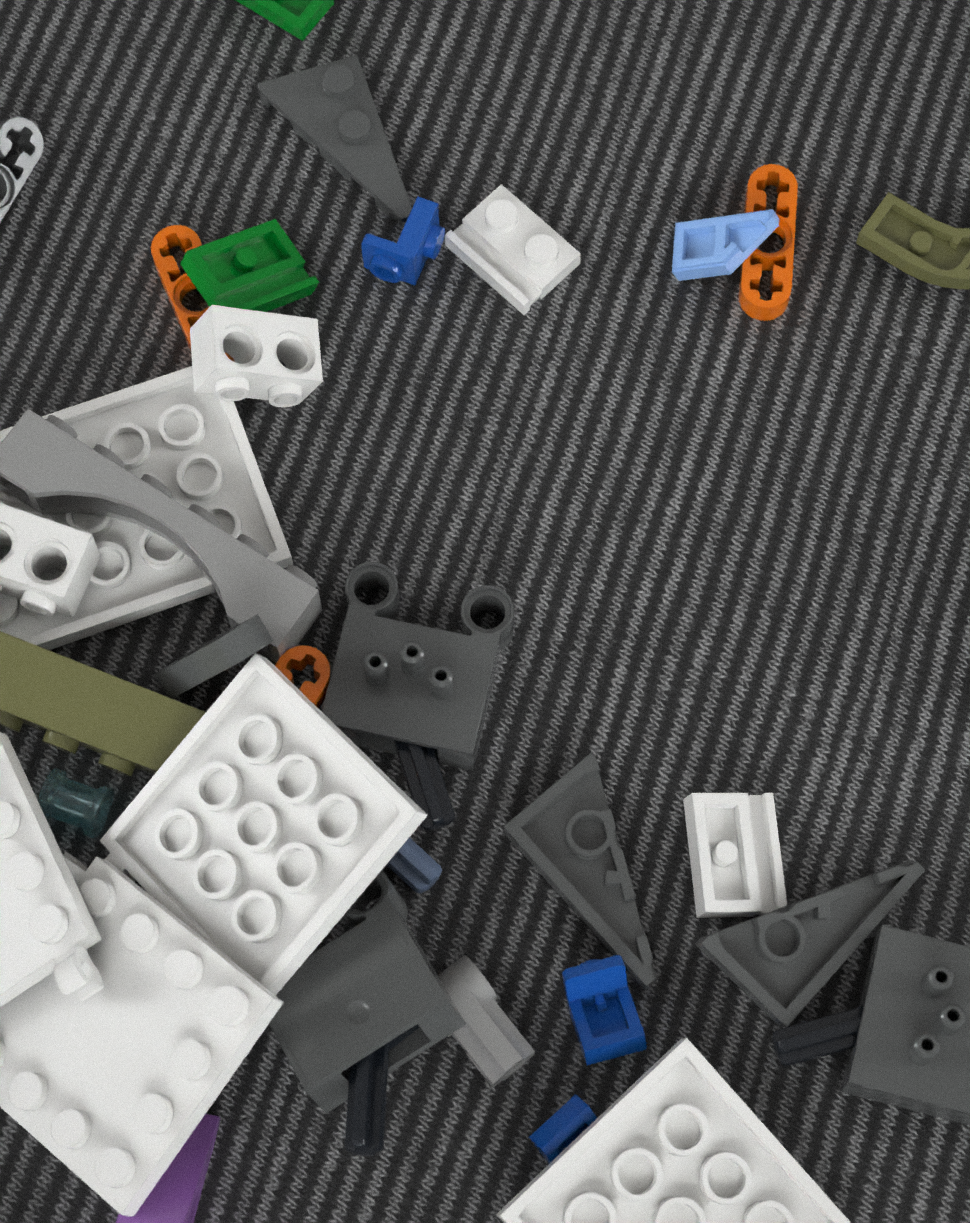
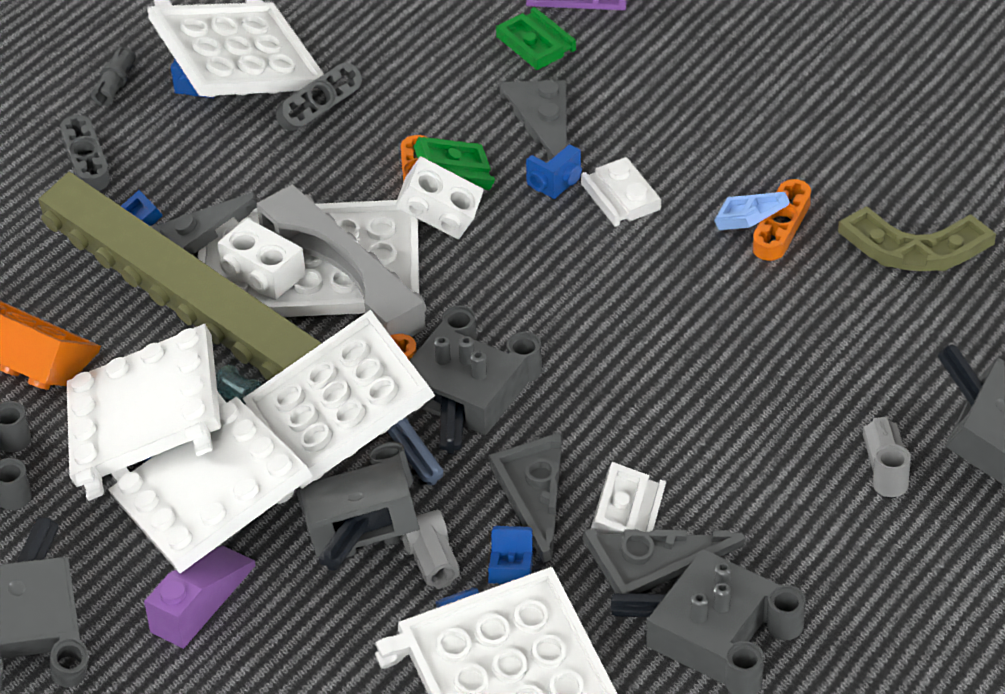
camera: 20 degrees right, 25 degrees down
(214, 656) = (349, 311): dark grey beam -> none

